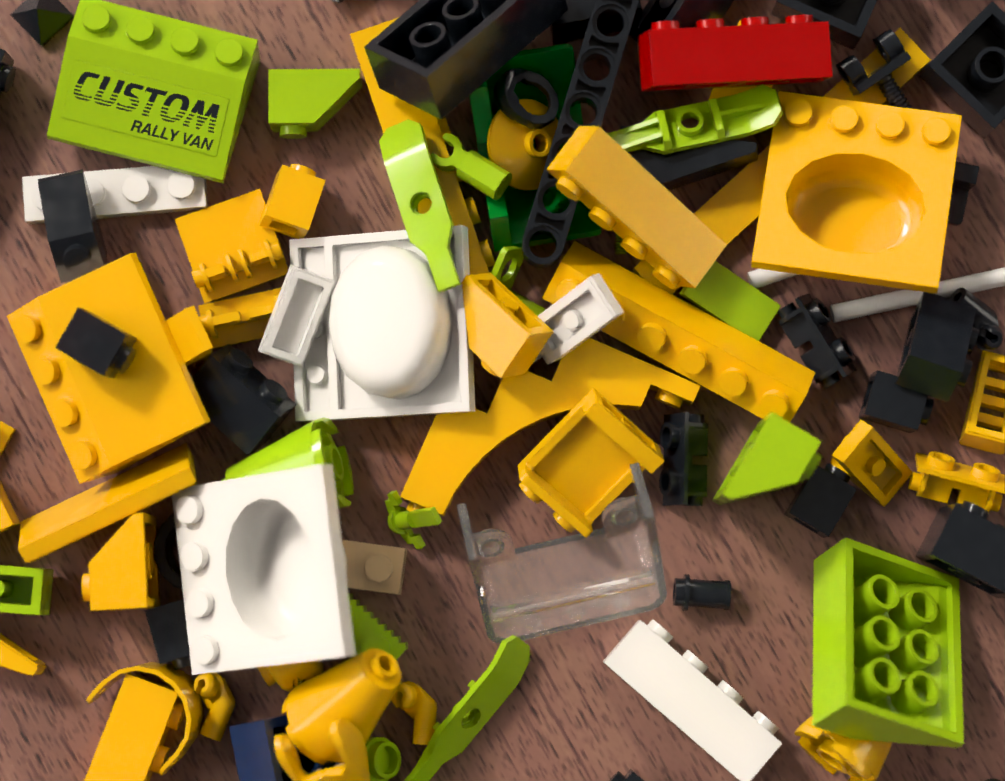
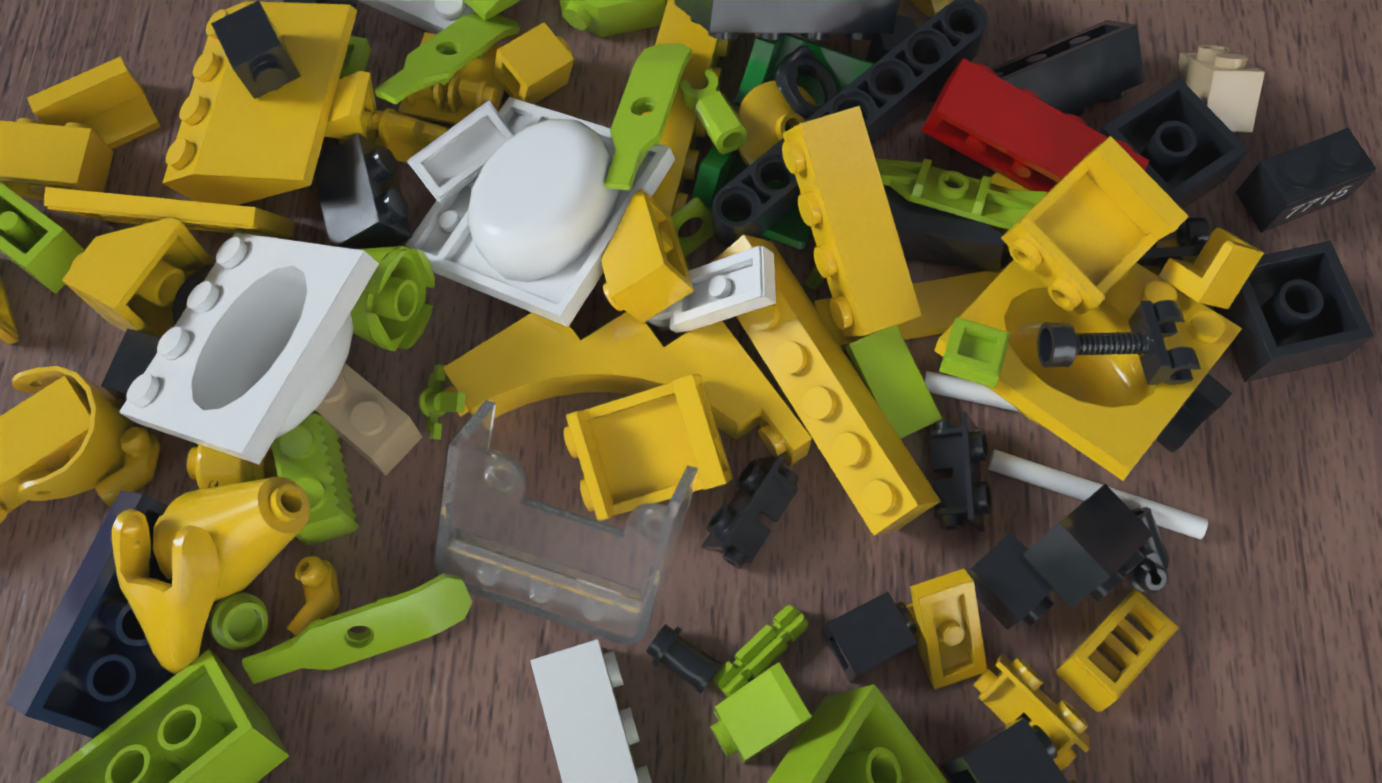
camera: 30 degrees right, 15 degrees down
(223, 212) = (446, 54): none -> lime piece
(751, 555) = (761, 650): none -> lime axle
(770, 461) = (835, 548): lime slope -> none
(779, 603) = (759, 715): none -> lime slope
(784, 260) = (975, 352): none -> lime tile
(815, 113) = (1093, 227): none -> yellow panel
(842, 219) = (1148, 324): none -> black bar
(921, 81) = (1217, 271): none -> yellow panel

